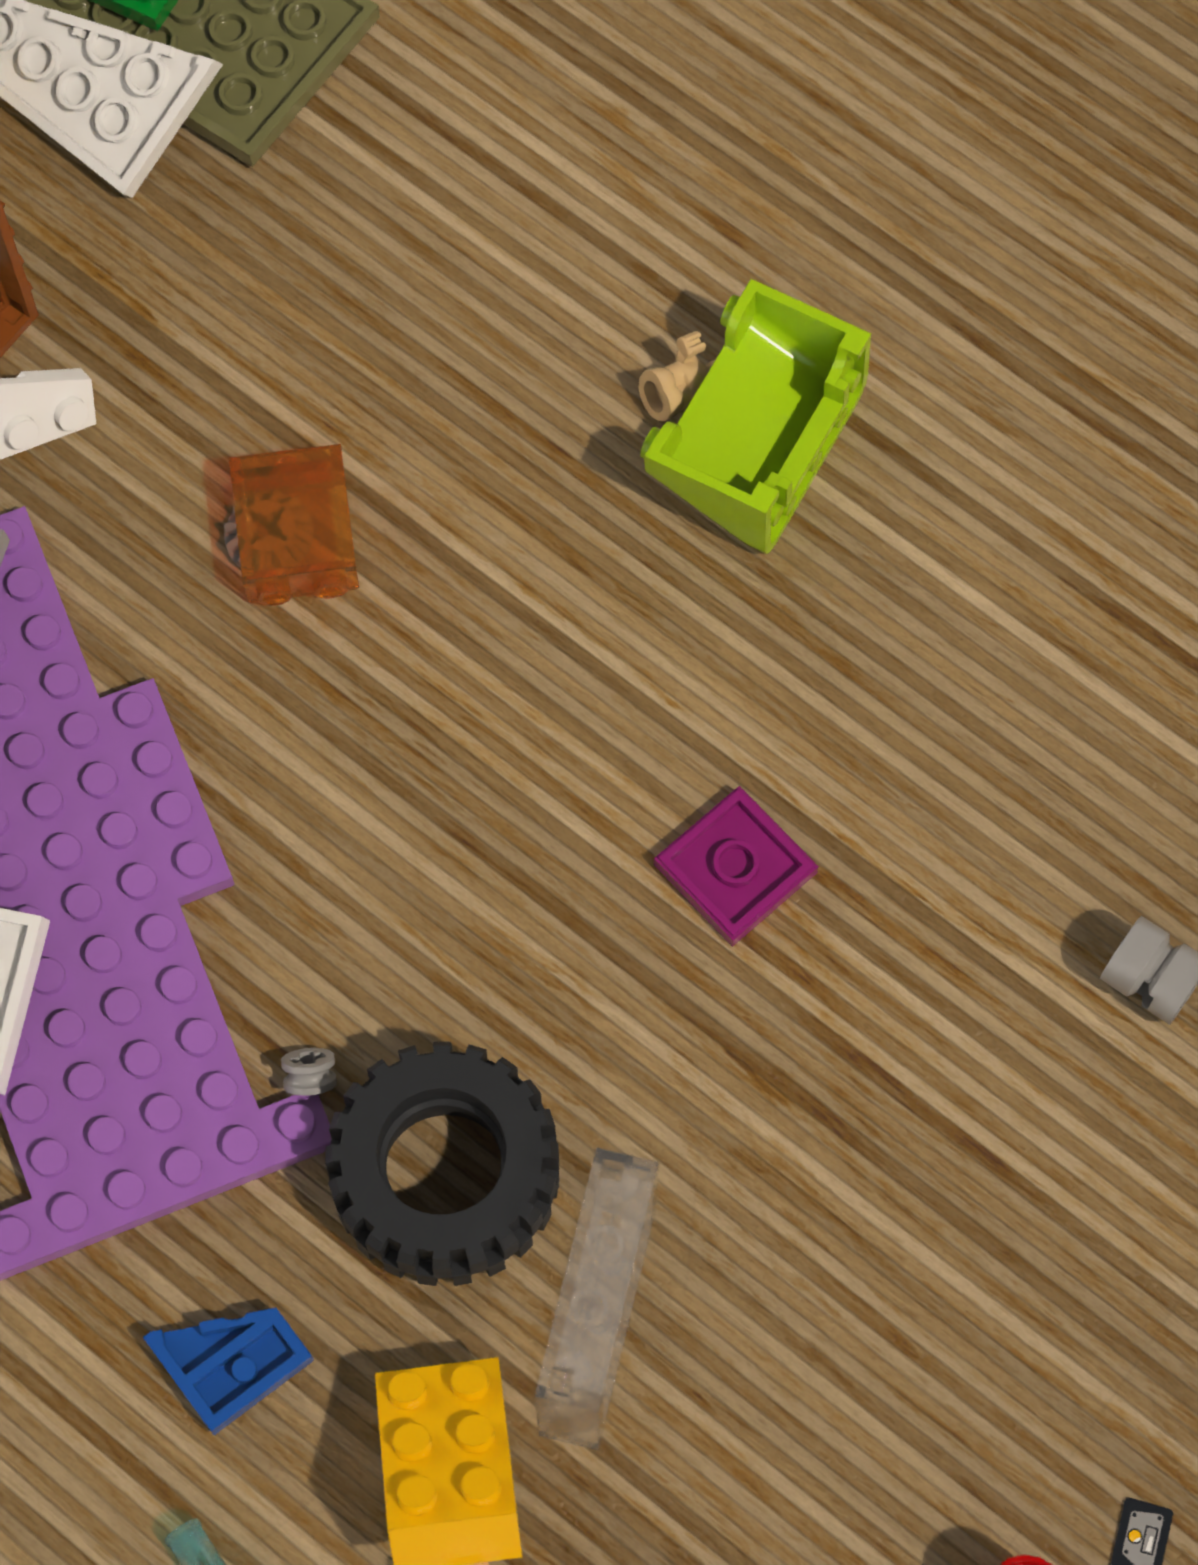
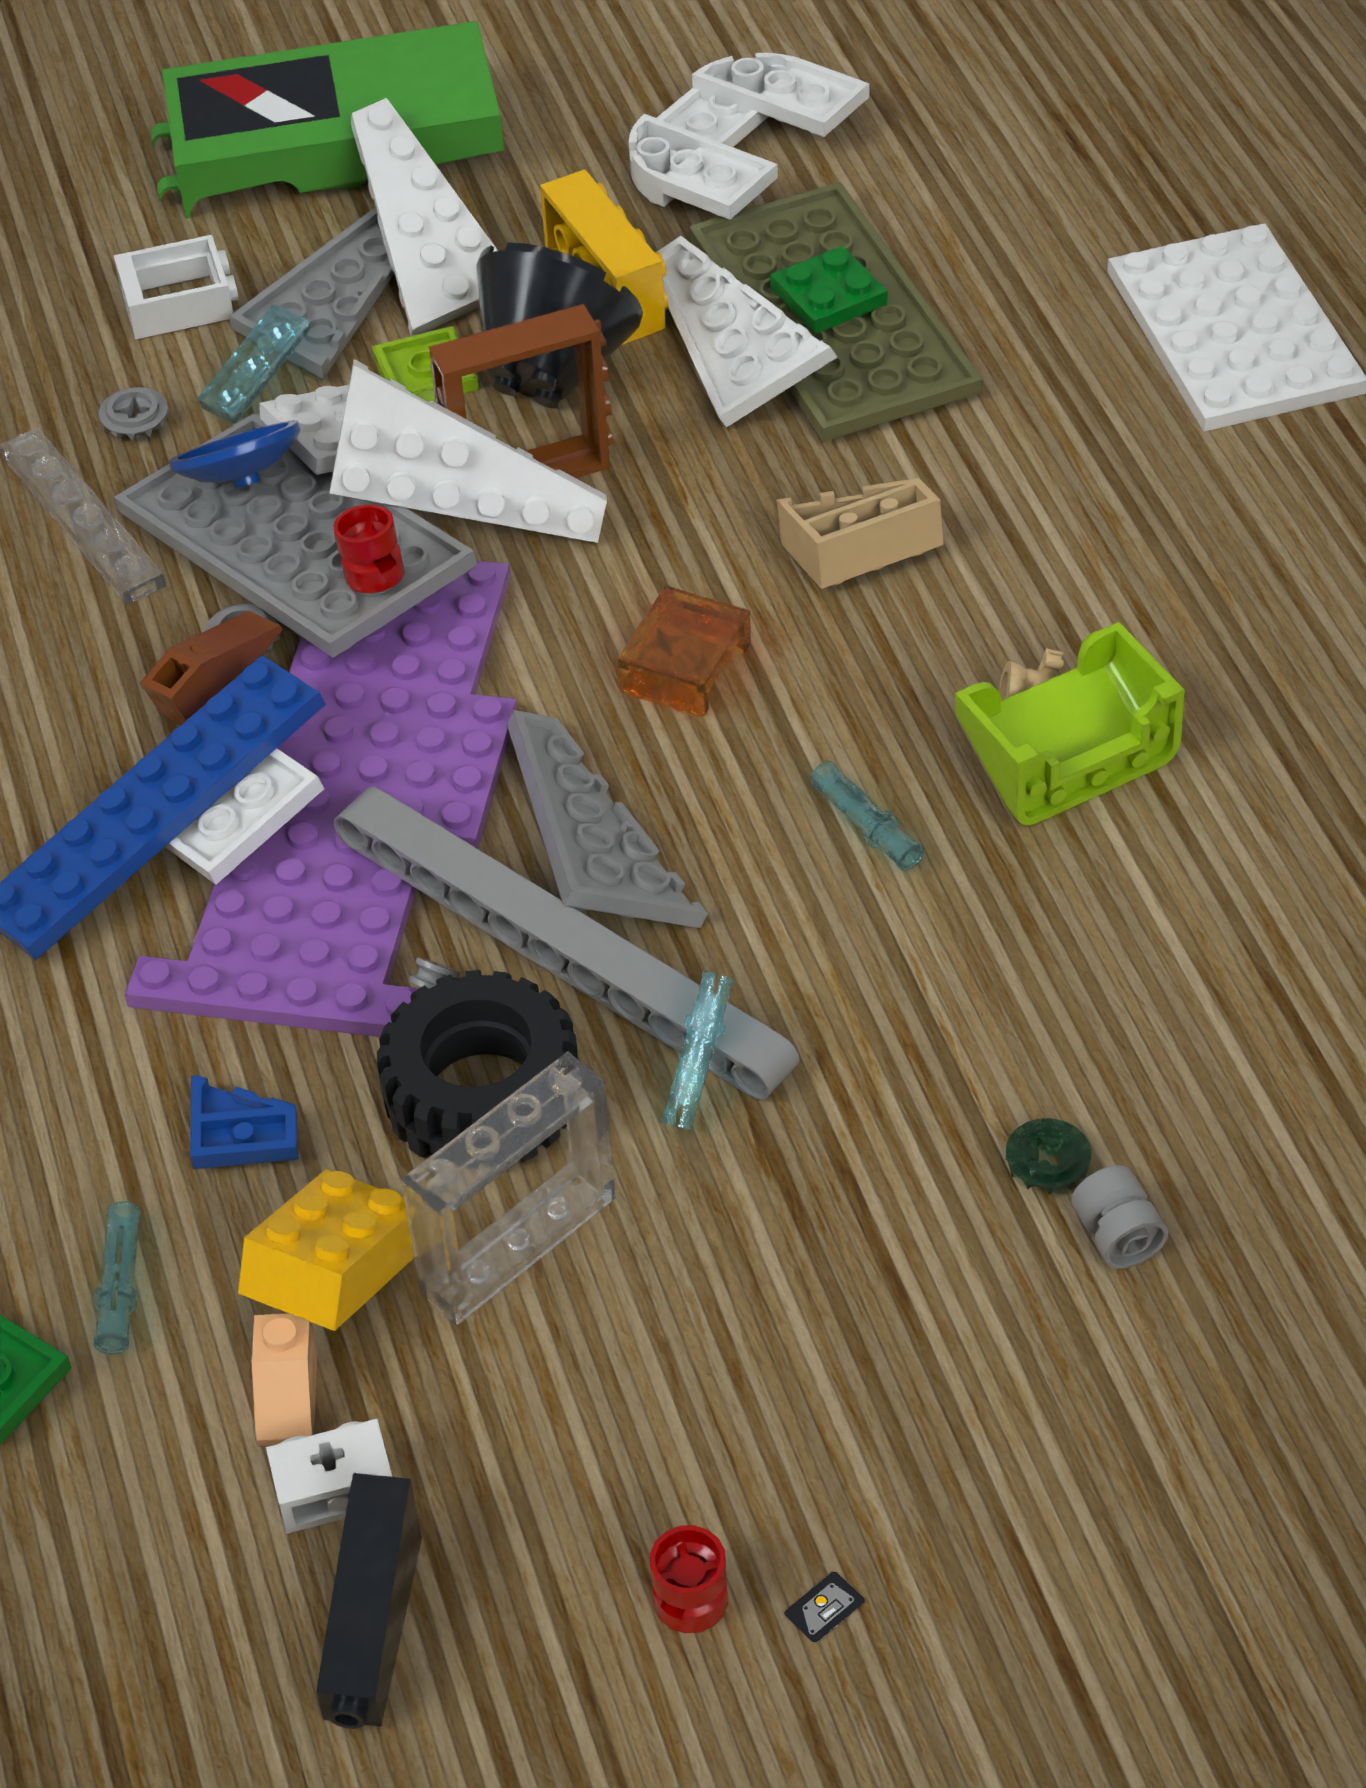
camera: 35 degrees right, 20 degrees down
(351, 807) = (592, 844): none -> light grey wing
(381, 277) = (862, 531): none -> tan wedge
(414, 958) = (558, 937): none -> light grey beam
(613, 629) = (878, 826): none -> clear light blue pin
(647, 997) = (697, 1050): none -> clear light blue pin
(735, 866) = (846, 1005): magenta tile -> none
(1029, 907) = (1054, 1138): none -> clear green gear

